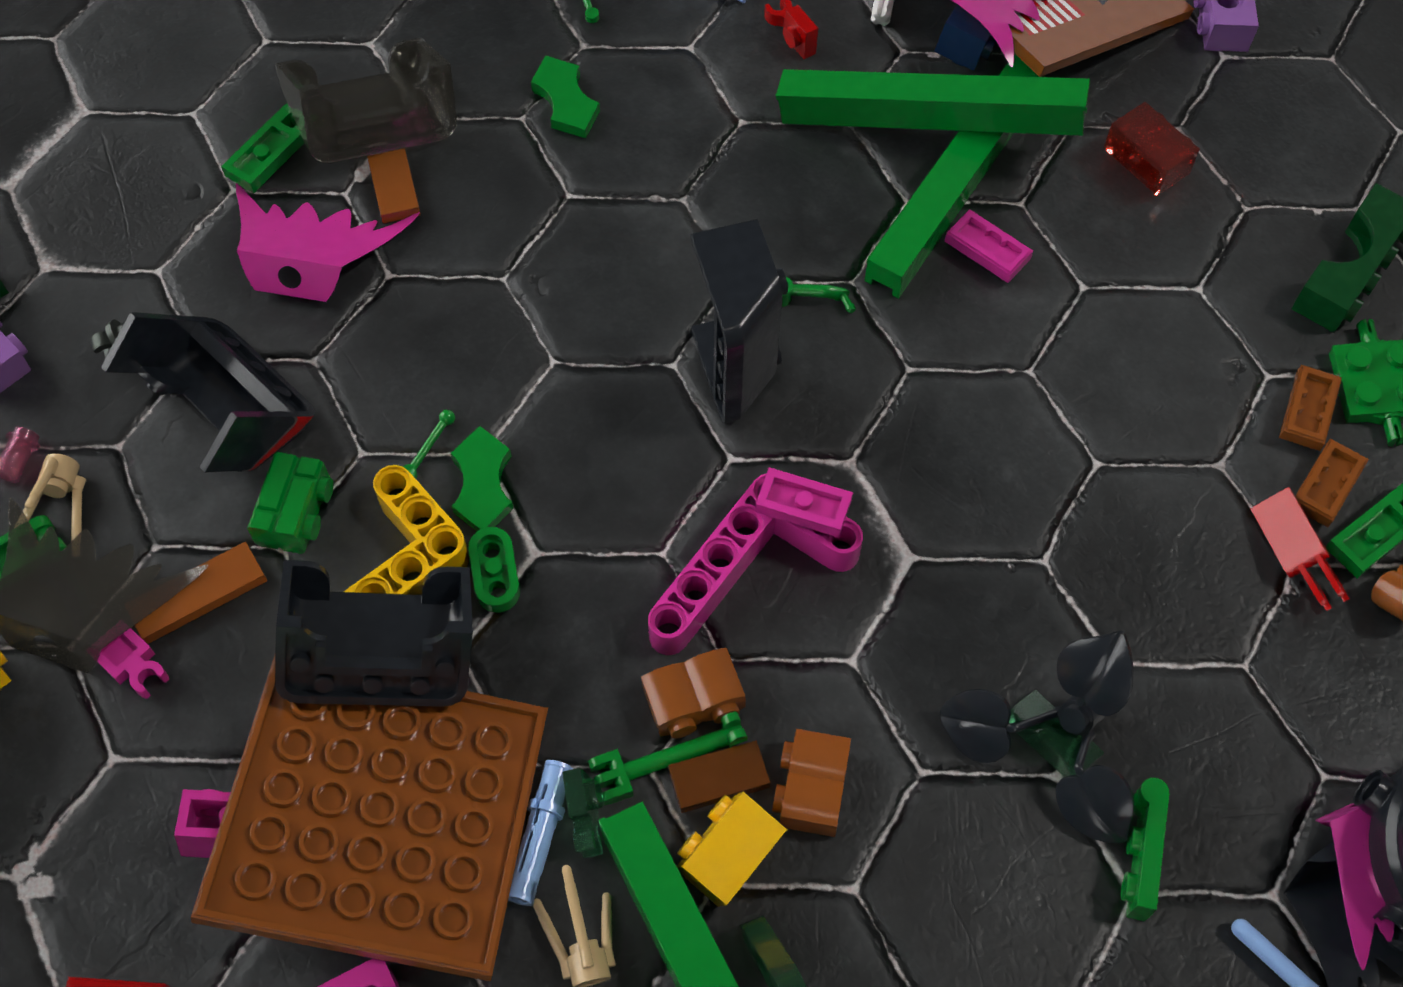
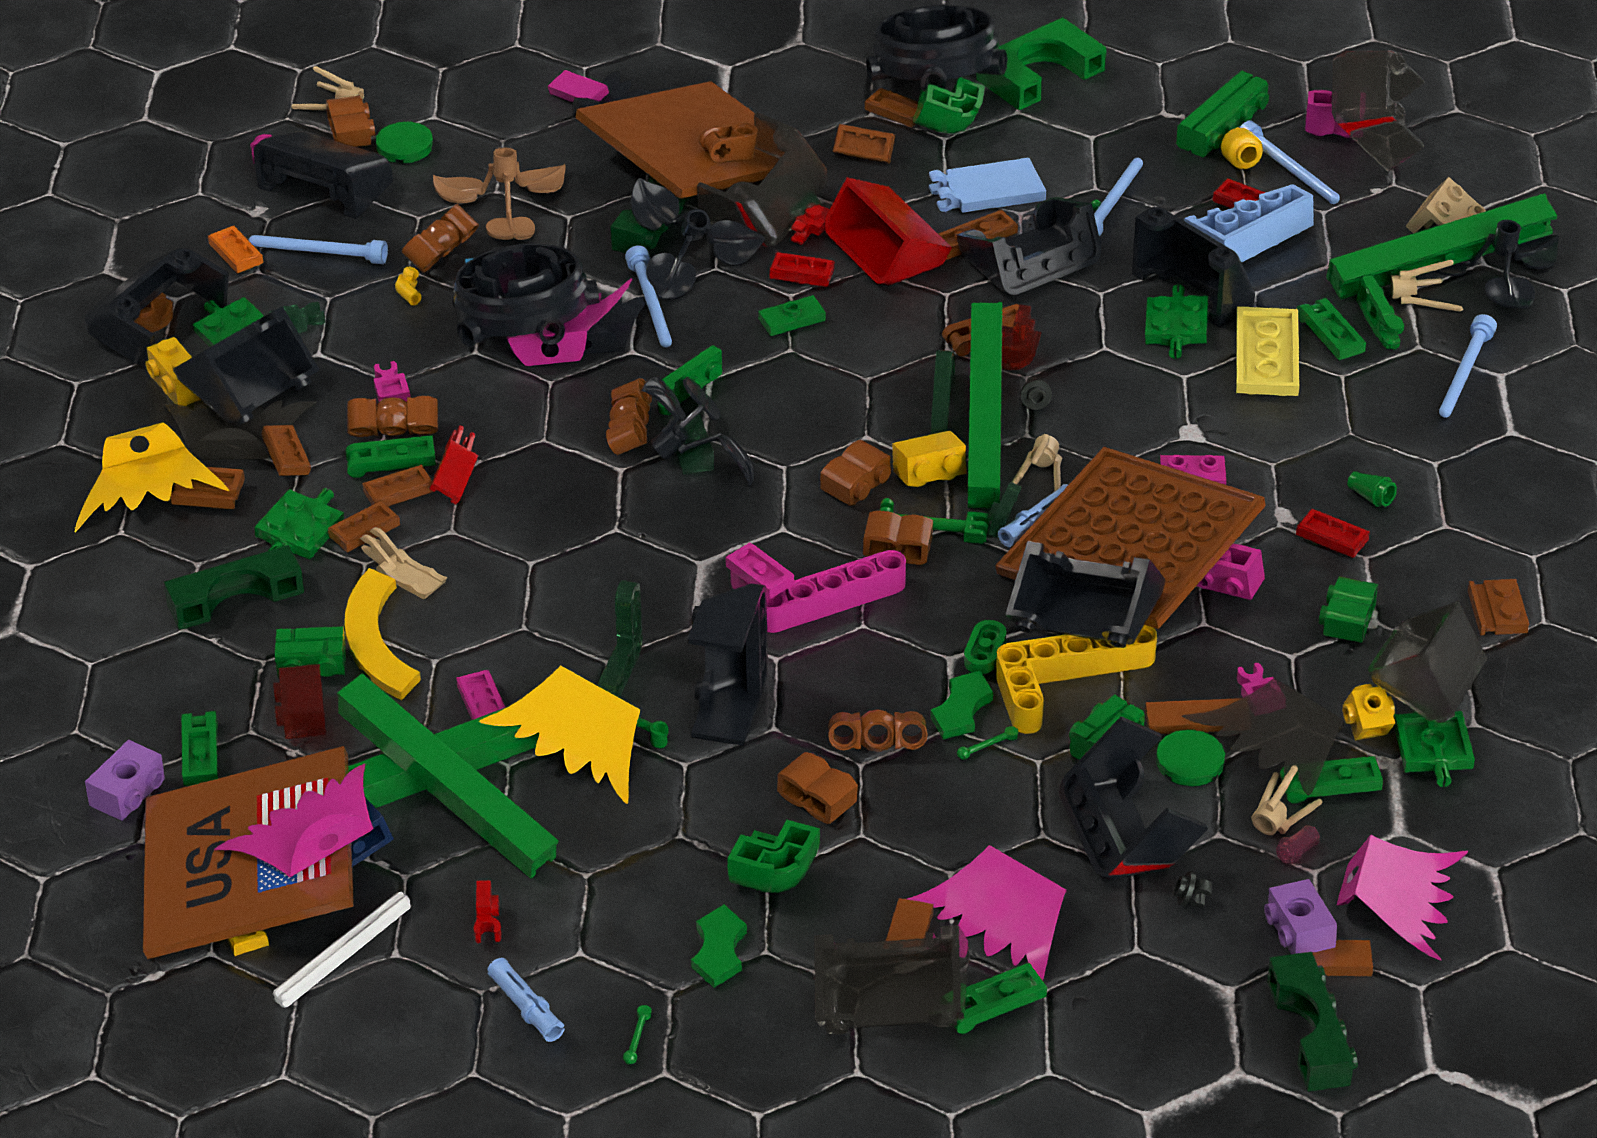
camera: 150 degrees left, 20 degrees down
(46, 855) = (1348, 609): none -> green brick
(183, 526) = (1190, 757): none -> green tile
(547, 381) = (893, 735): none -> dark orange piece
(557, 169) = (772, 861): none -> green brick
(572, 289) = (817, 787): none -> dark orange brick
(716, 774) = (912, 501): reddish brown tile -> none
(873, 237) = (581, 721): none -> yellow piece
(889, 343) = (629, 638): none -> clear green beam
(1168, 732) = (628, 417): none -> dark orange piece
(1176, 273) = (365, 638): none -> yellow tile
(1201, 76) = (199, 748): none -> green plate
(1202, 215) = (310, 647): none -> green brick
(1222, 380) = (398, 565): none -> tan arm

